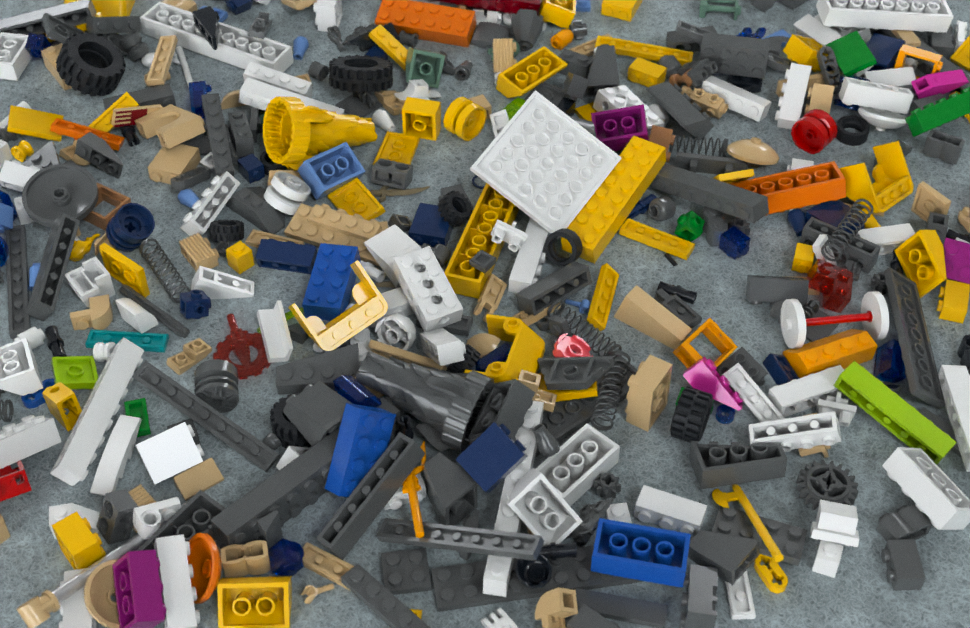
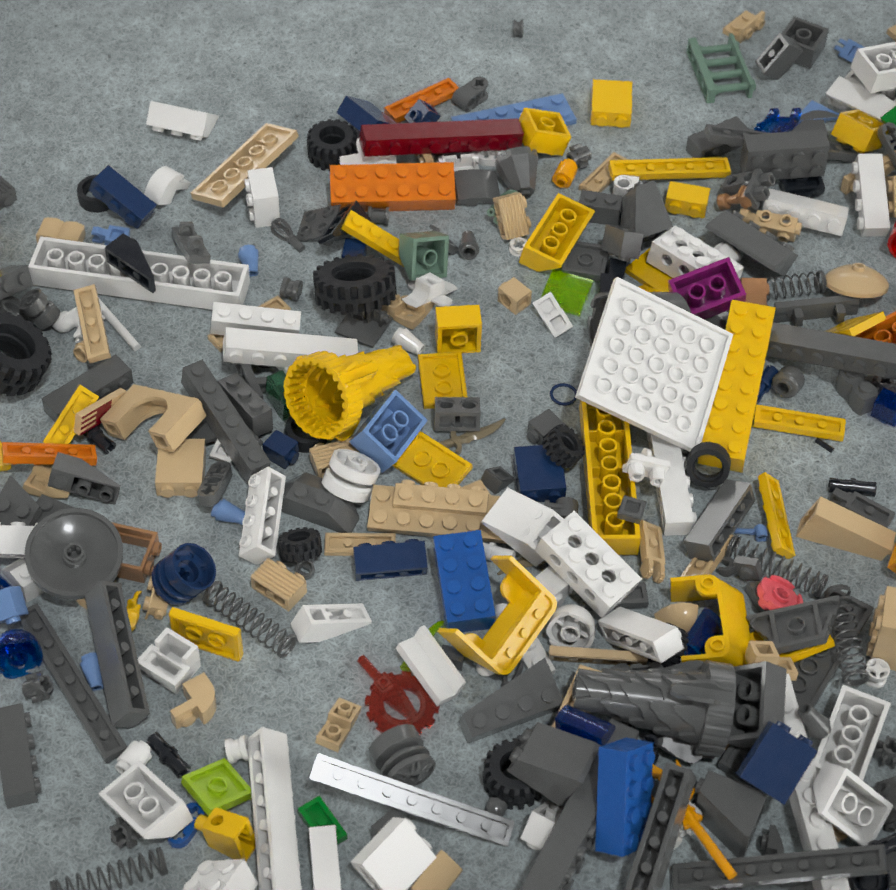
camera: 20 degrees left, 5 degrees up
(135, 315) = (249, 690): white brick -> none
(147, 341) = (278, 719): teal tile -> none
(158, 313) = (263, 676): dark grey axle -> none
(194, 304) = (313, 656): dark blue brick -> none
(197, 89) = (162, 366): clear blue brick -> none
(231, 100) = (208, 351): tan brick -> none
(239, 257) = (333, 576): yellow brick -> none
(464, 118) = (510, 317): yellow wheel -> none
(624, 421) = (881, 672): none -> white wheel
(671, 63) = (710, 180): dark grey head -> none
(689, 226) = (831, 399): green brick -> none

